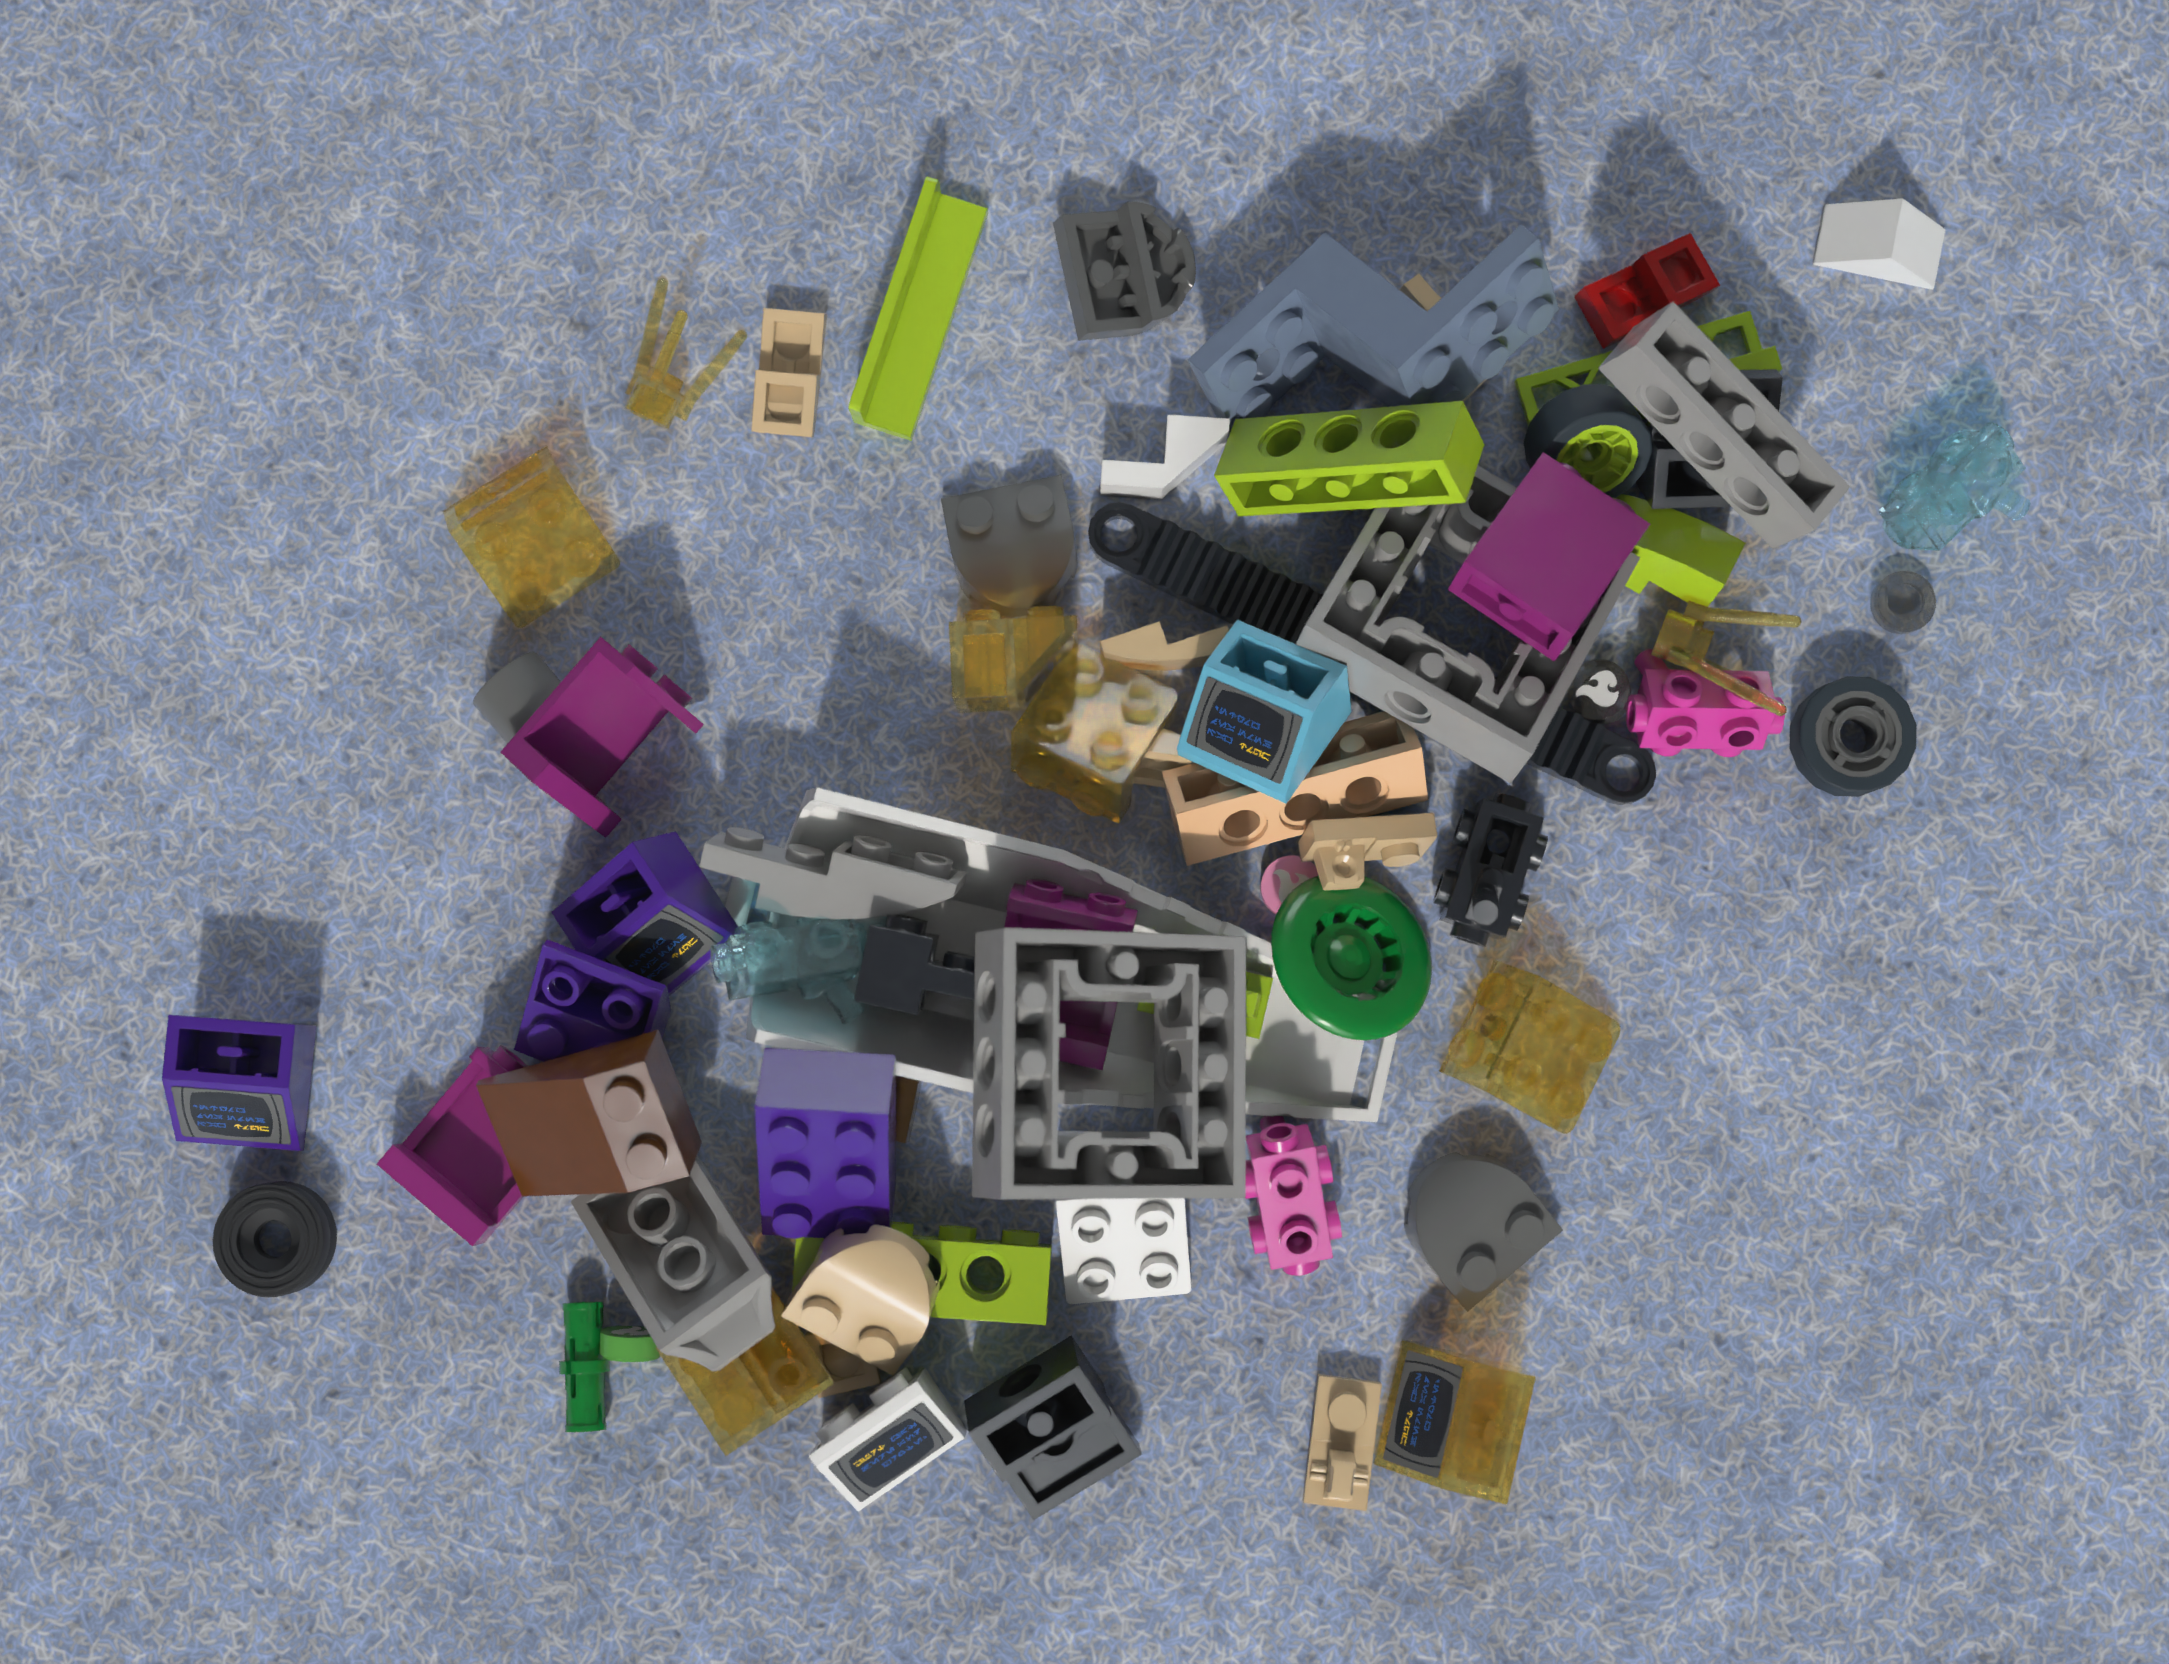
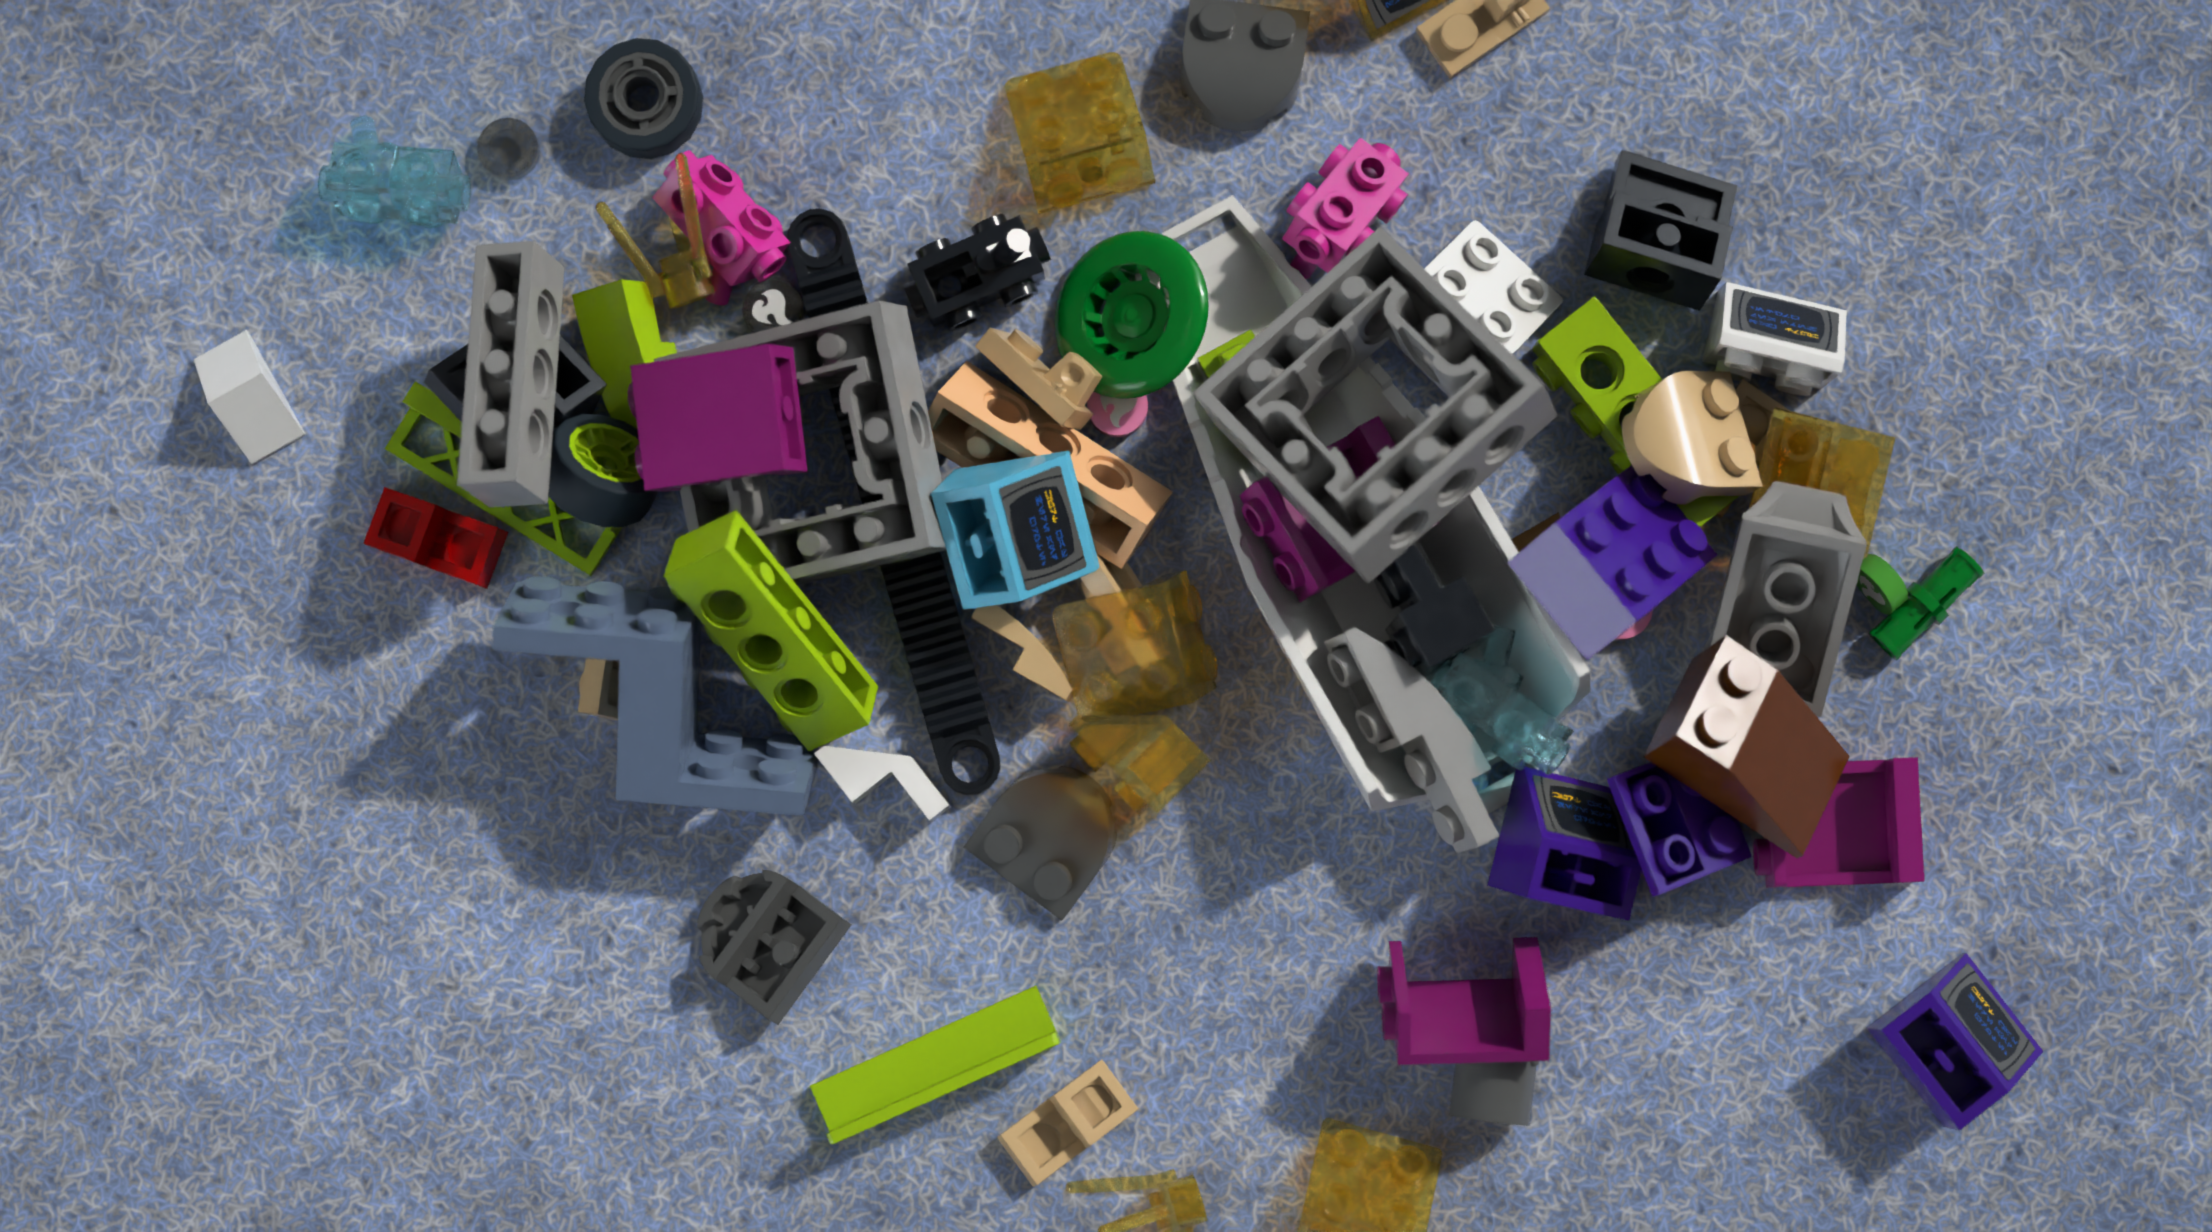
camera: 130 degrees left, 0 degrees up
(238, 1243) = (2080, 907): black tyre -> none

